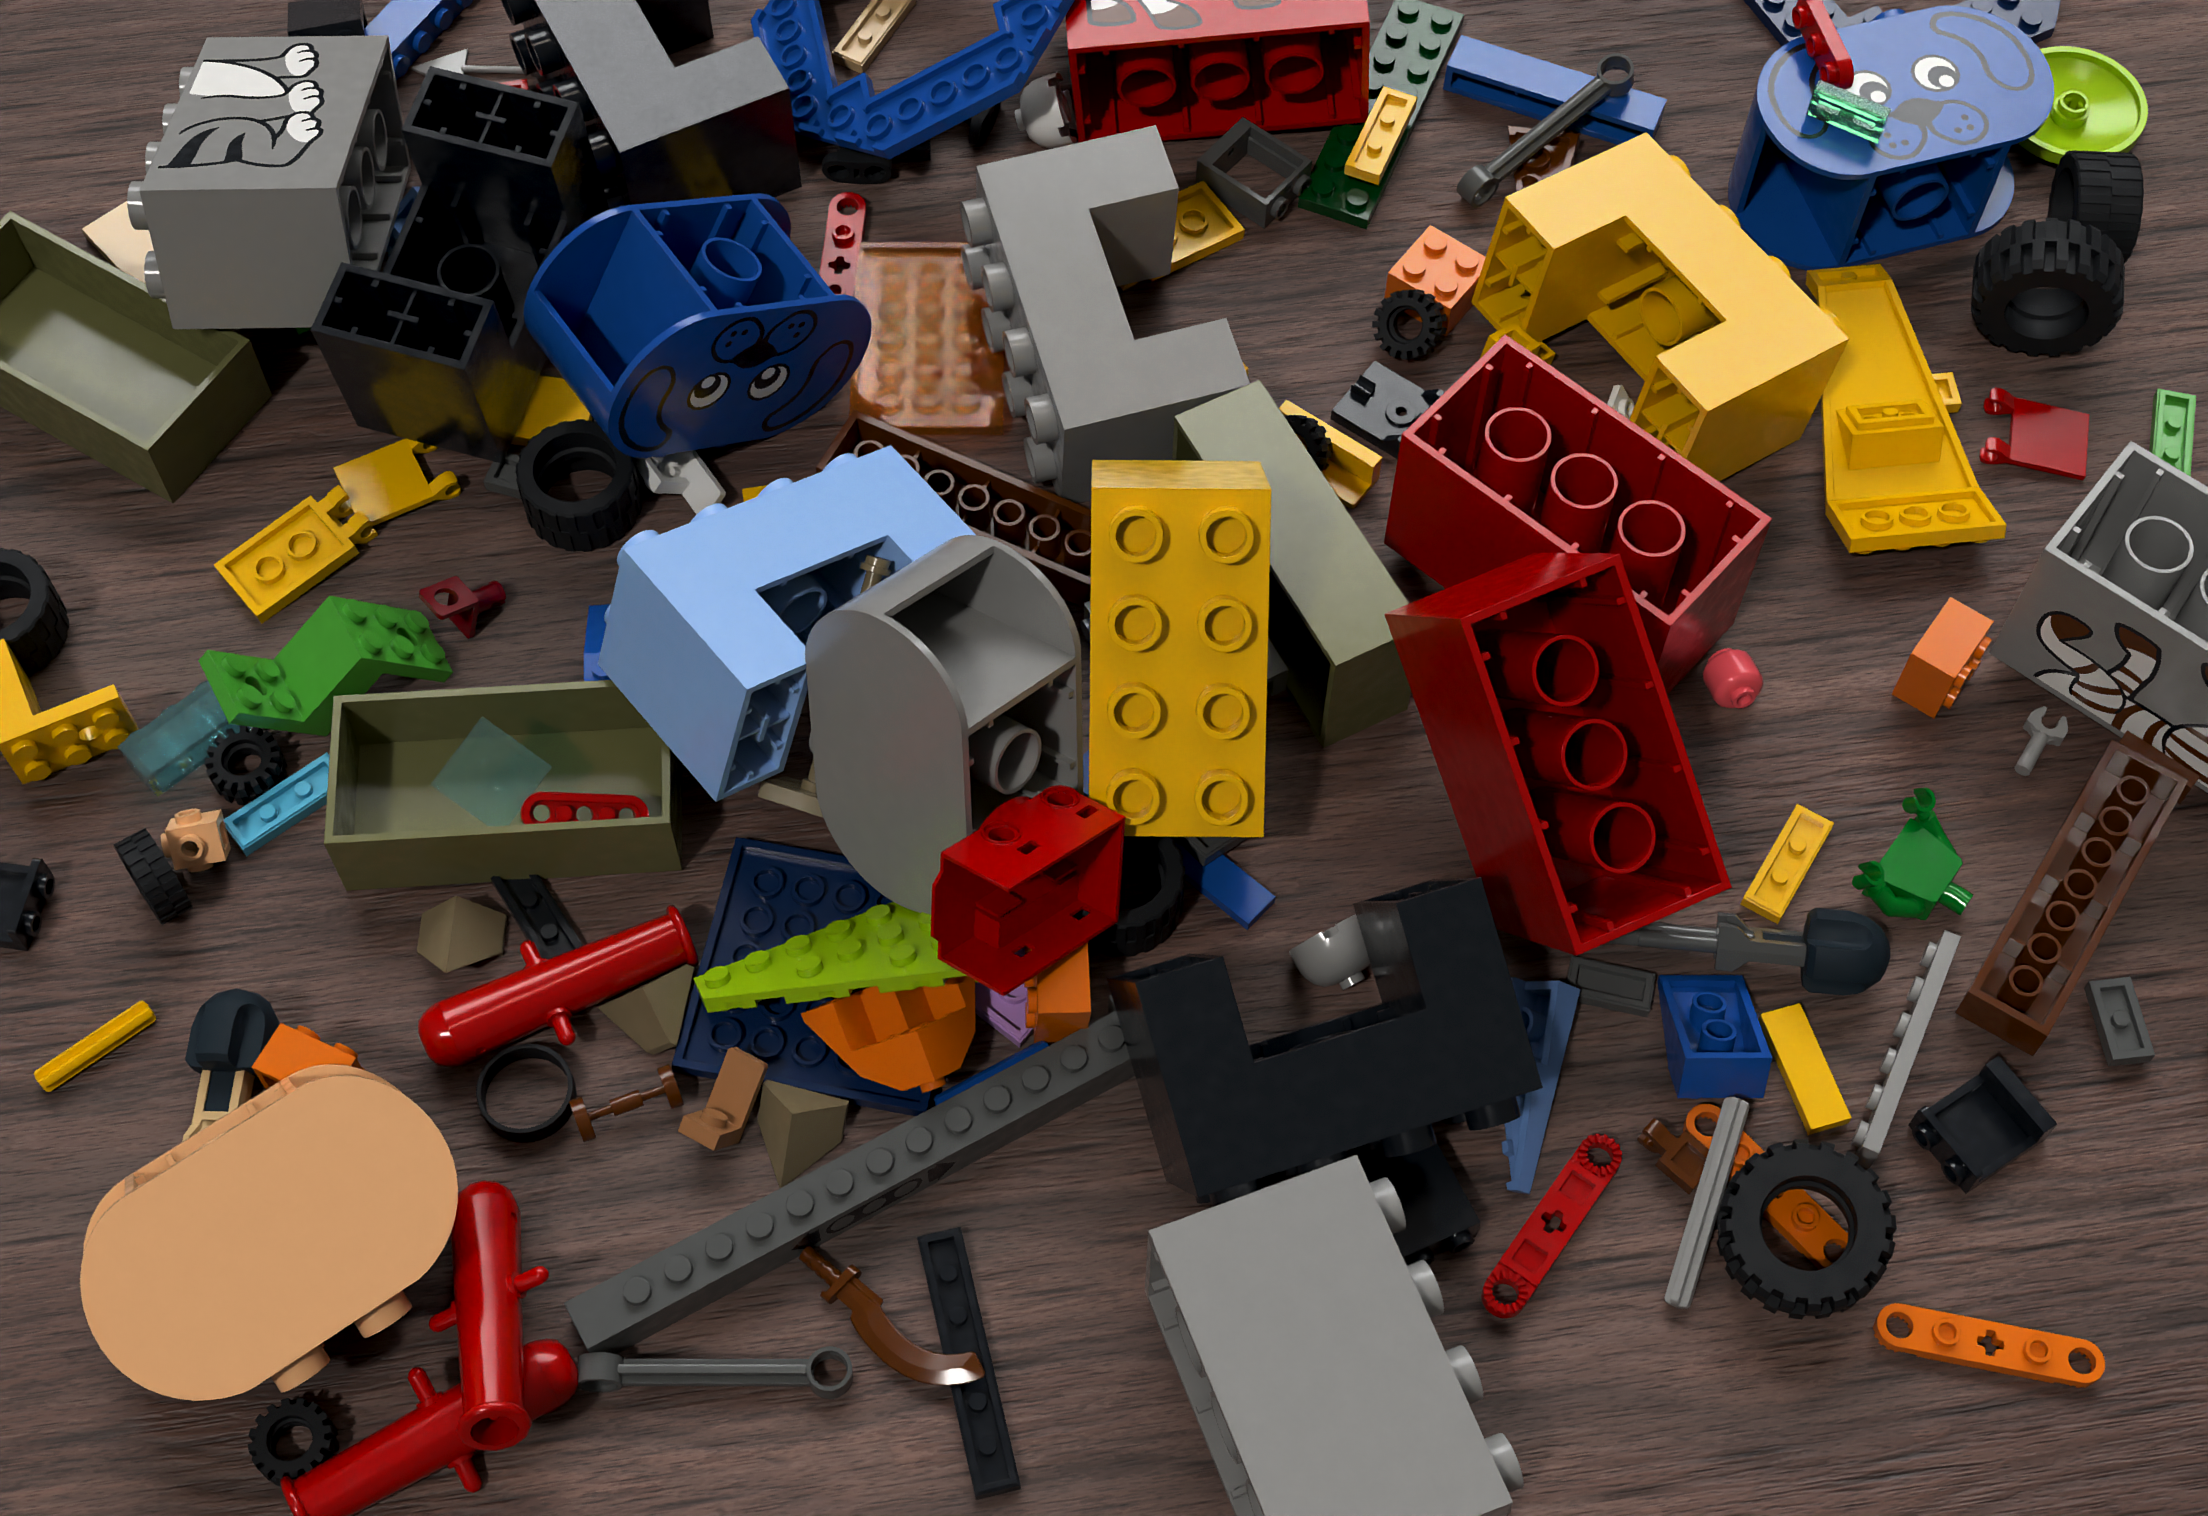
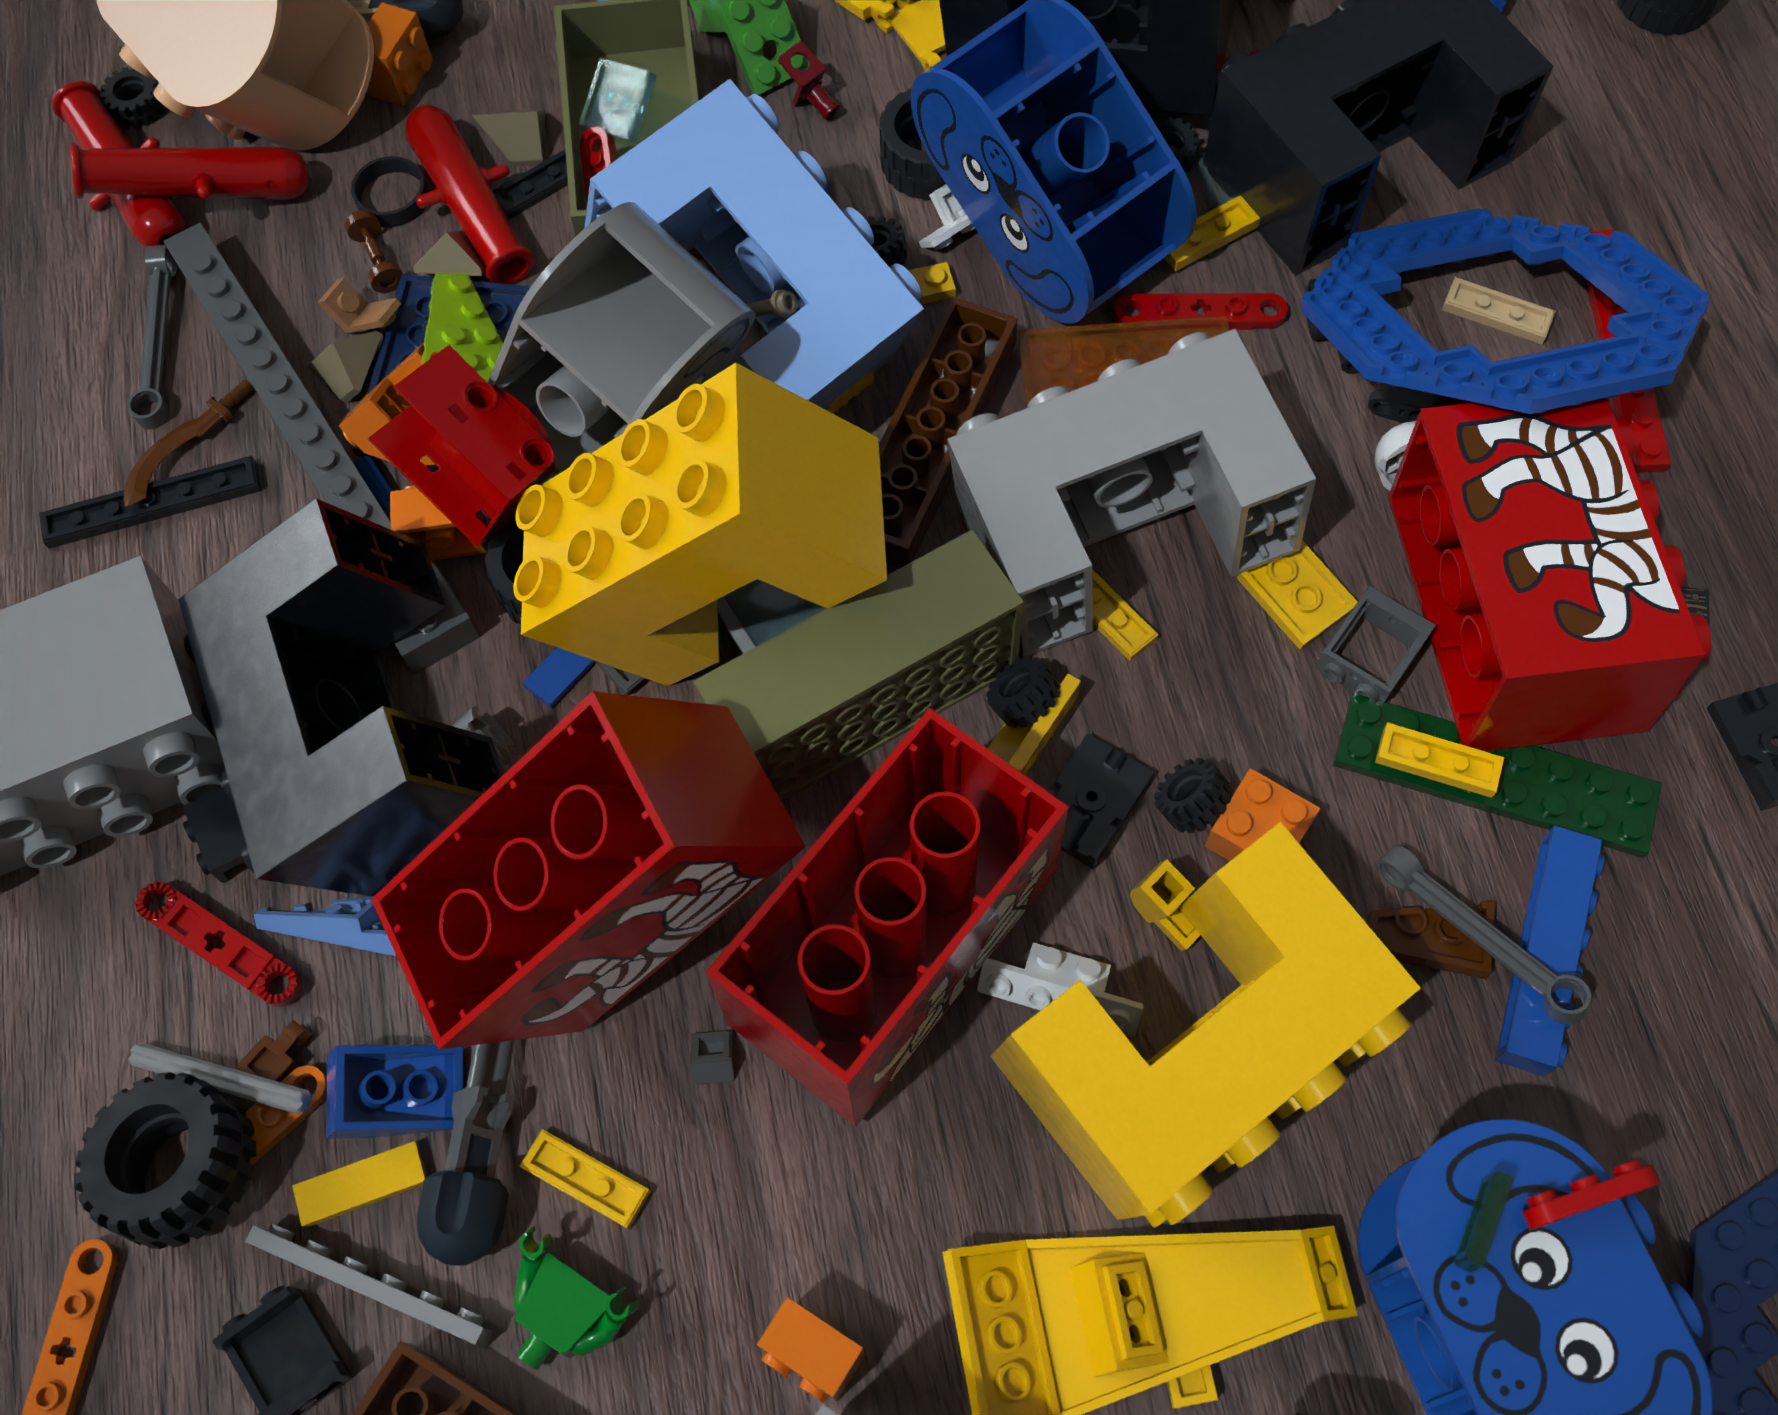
camera: 90 degrees right, 5 degrees up
(1732, 678) = (790, 1125): coral head -> none

